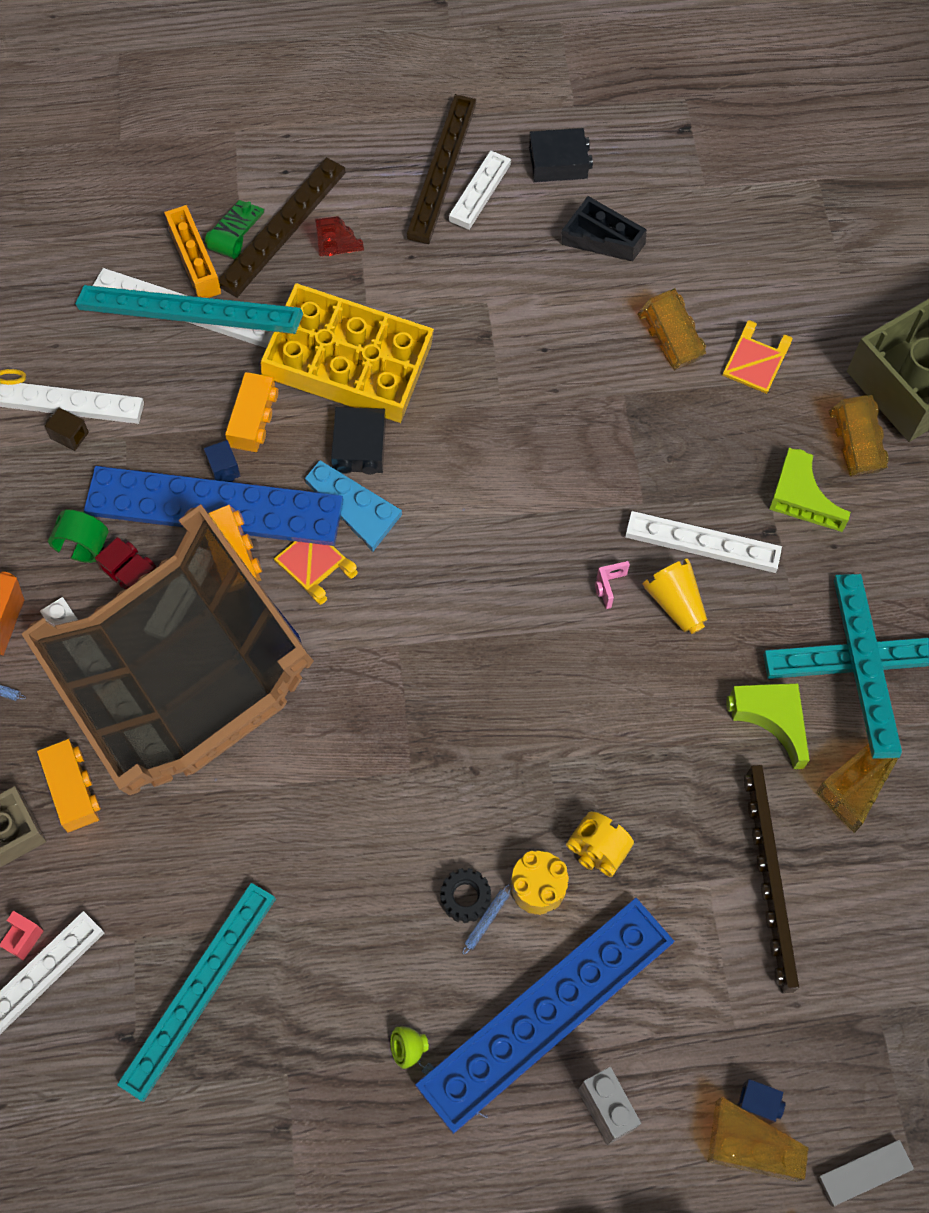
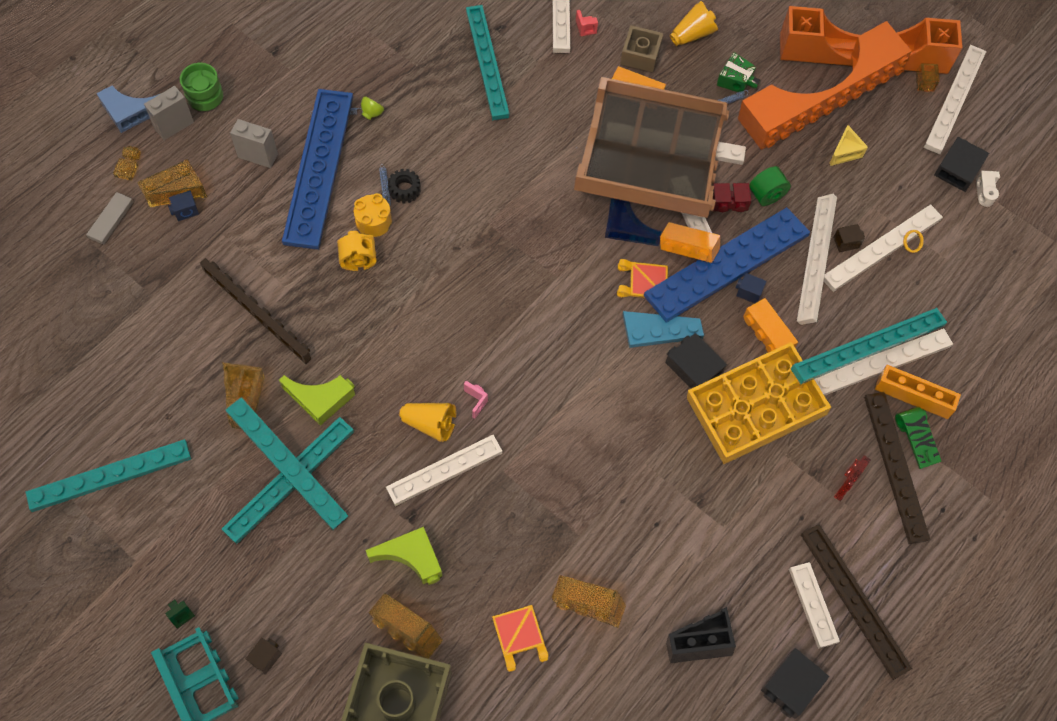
camera: 135 degrees right, 0 degrees up
(120, 437) = (817, 259): none -> white plate

